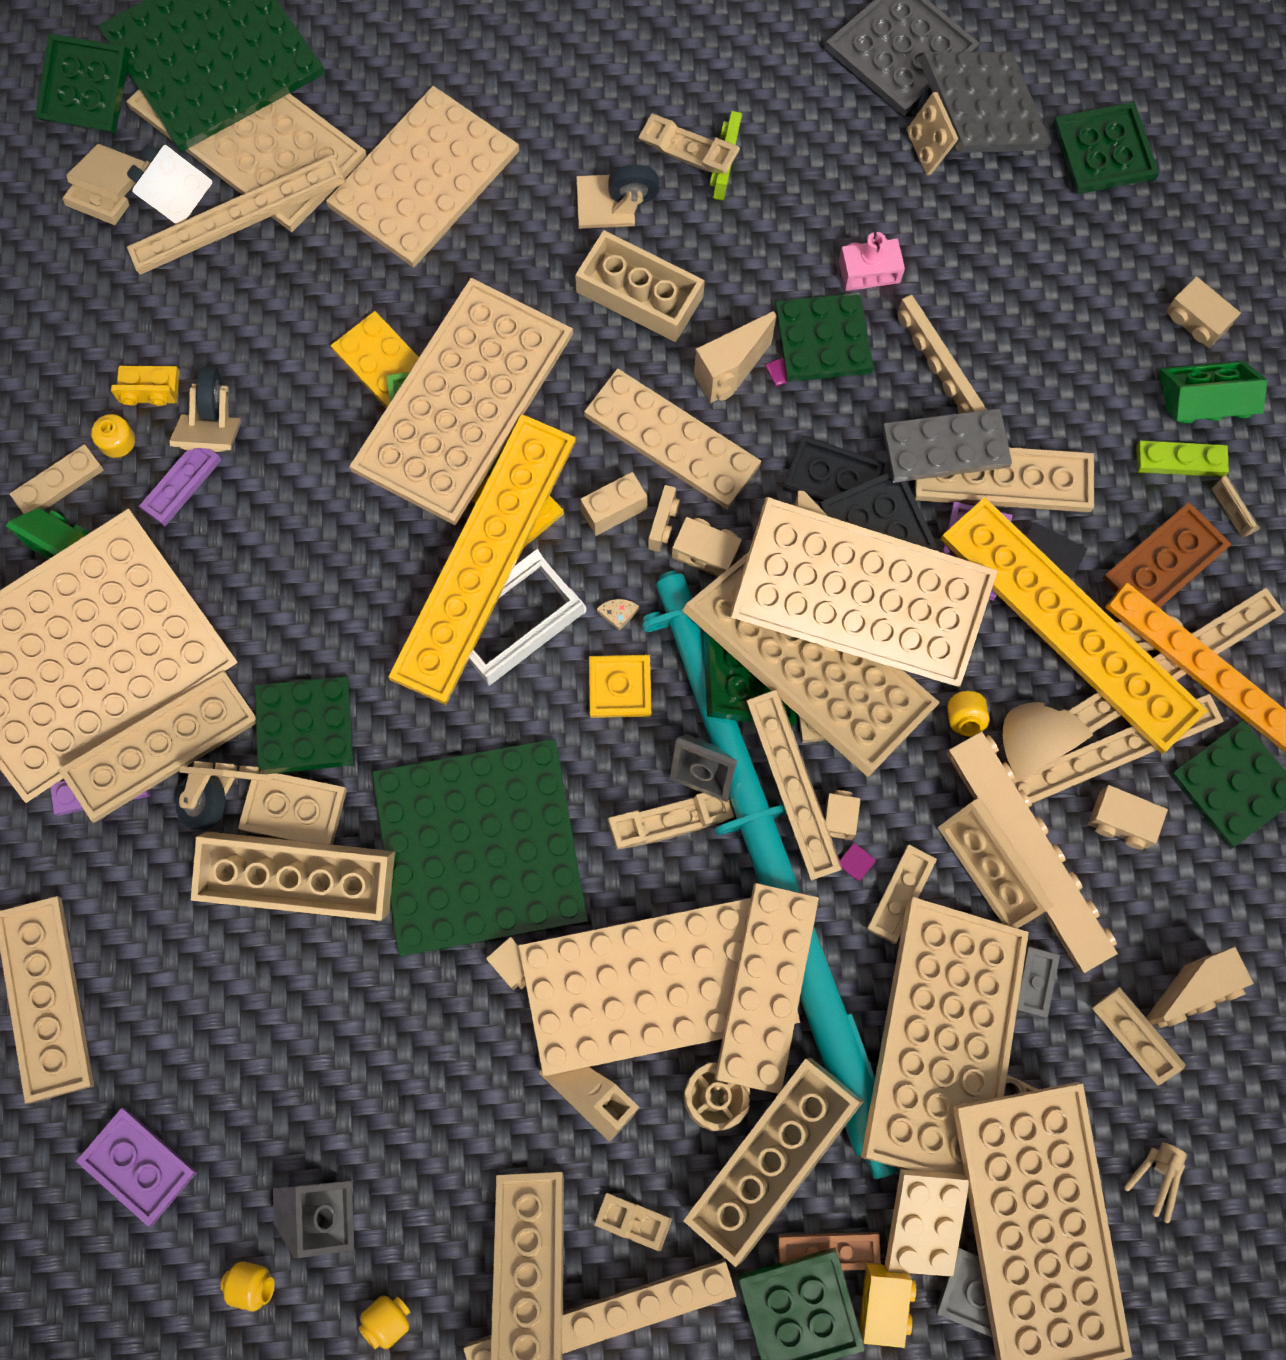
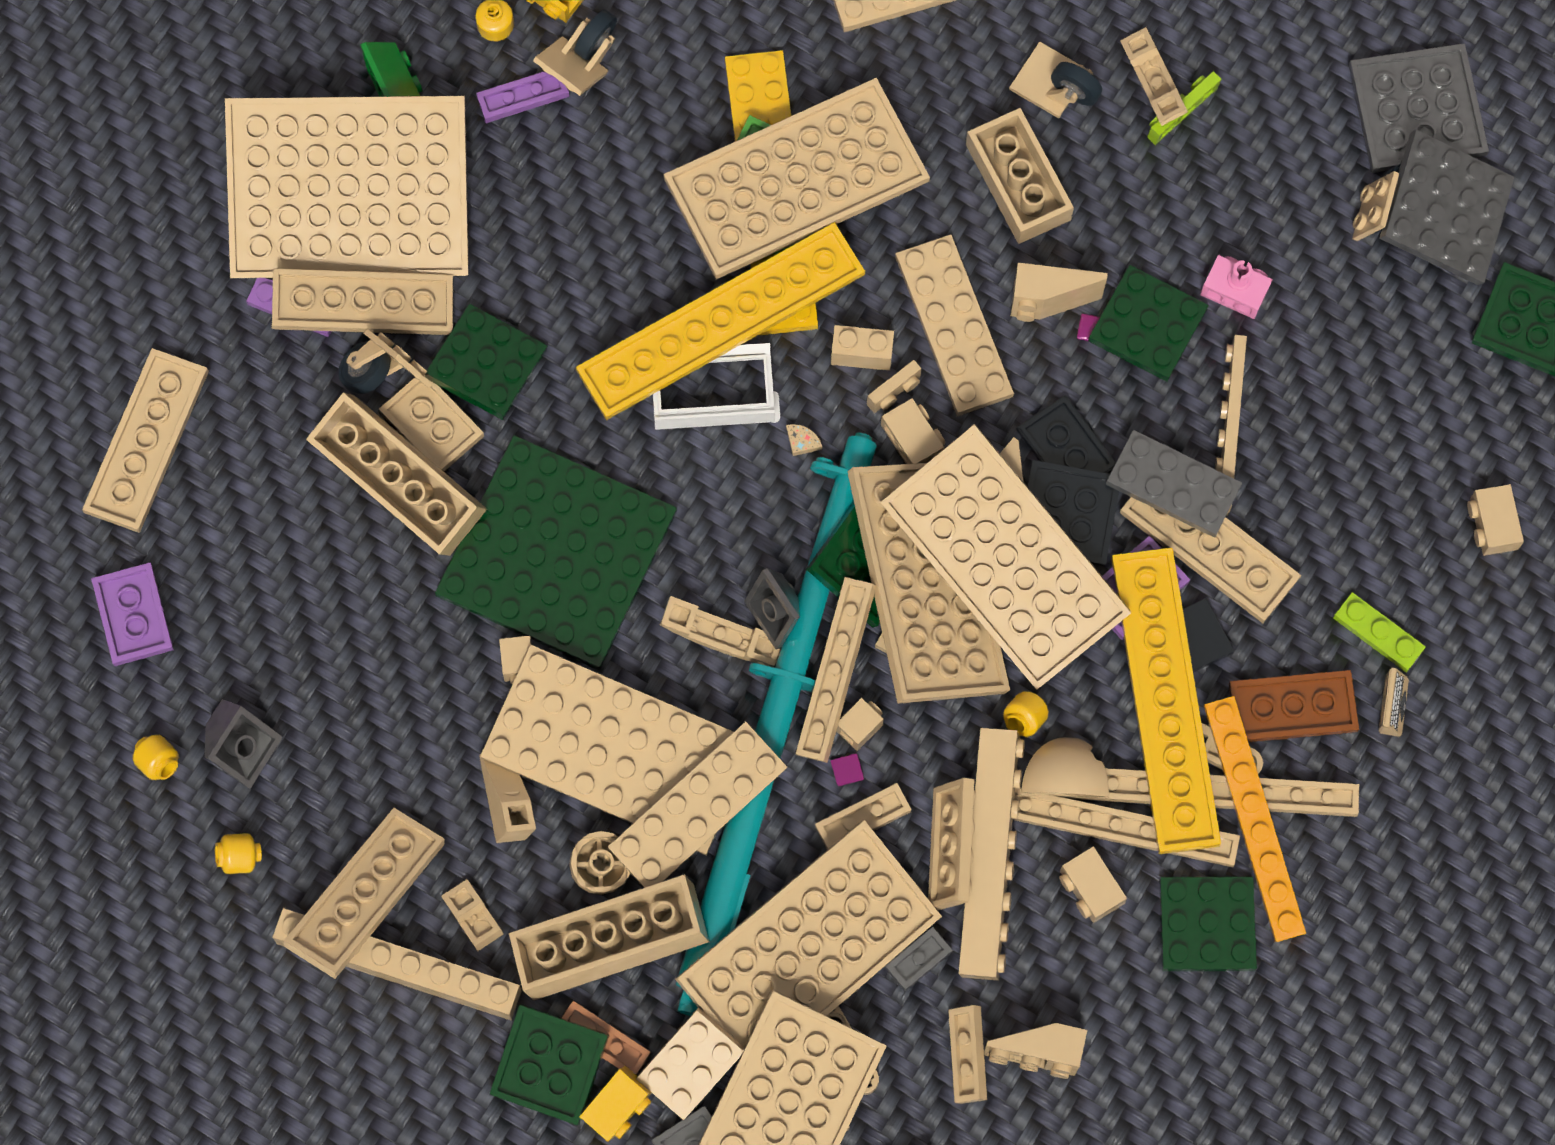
camera: 35 degrees right, 0 degrees up
(57, 480) = (425, 27): tan plate -> none
(620, 686) = (759, 500): yellow plate -> none
(1213, 391) = (1449, 592): green slope -> none

